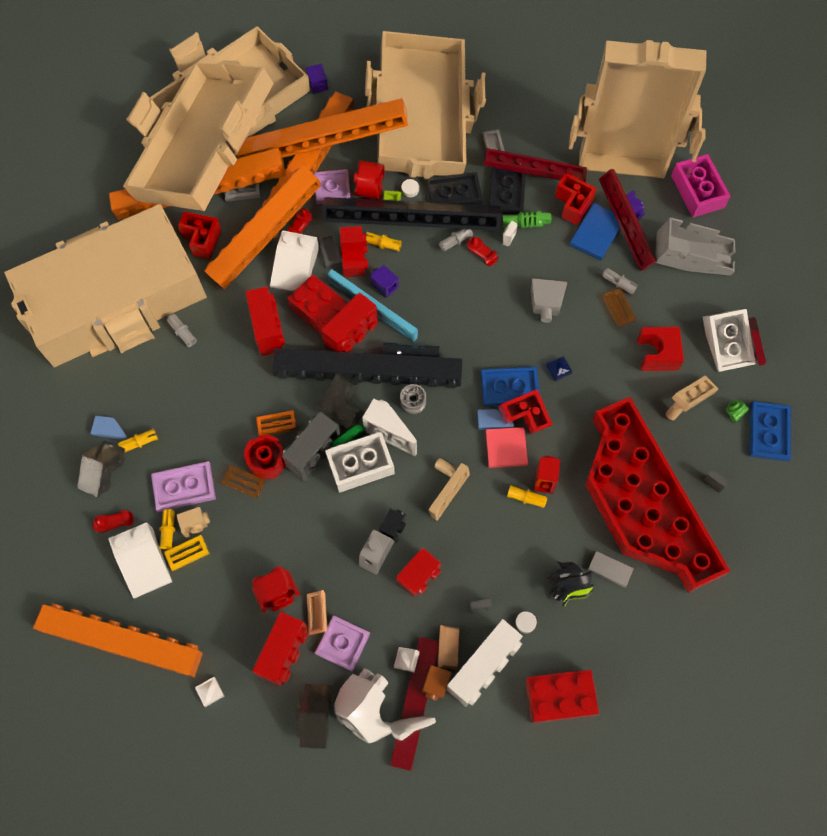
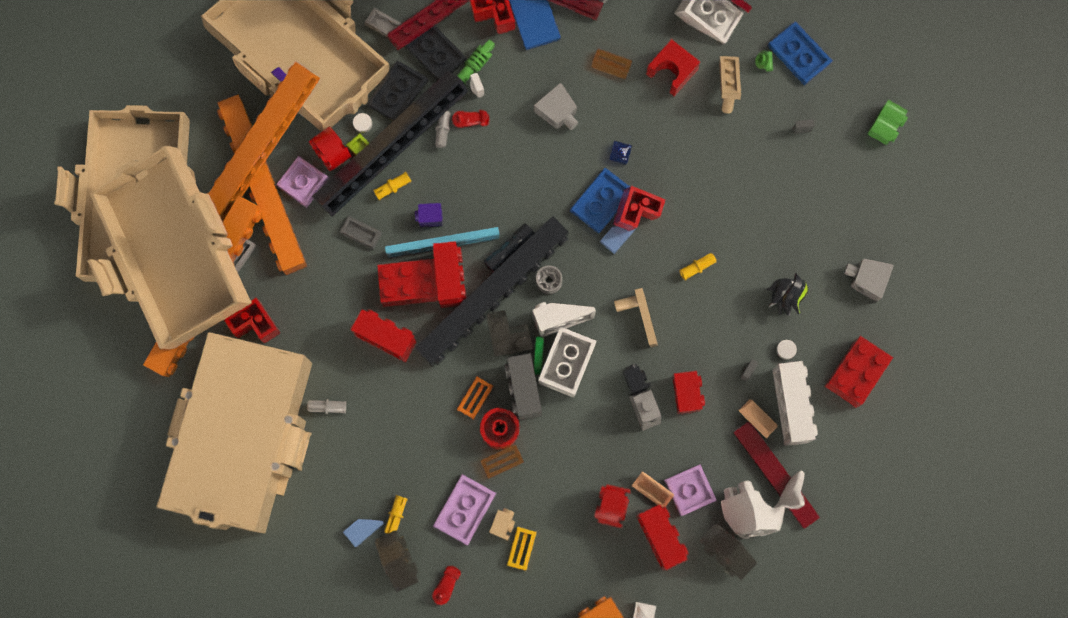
camera: 50 degrees left, 10 degrees up
(140, 559) = (499, 587): white slope -> none
(167, 529) = (490, 548): yellow axle -> none
(263, 227) = (299, 268): orange brick -> none
(293, 260) = (347, 270): white slope -> none
(301, 221) = (312, 232): red piece -> none
(317, 78) = (186, 103): dark purple brick -> none
(353, 250) = (381, 216): red brick -> none
(406, 659) = (742, 455): white tile -> none
(436, 683) = (778, 449): dark orange brick -> none
(506, 447) = (647, 246): coral tile -> none
(547, 474) = (697, 237): red brick -> none
(610, 569) = (800, 257): light grey tile -> none
(620, 281) = (592, 43): light grey axle -> none
(646, 501) = (775, 187): red brick -> none
(648, 638) = (870, 277): none -> light grey torso
(787, 543) = (887, 122): none -> bright green brick

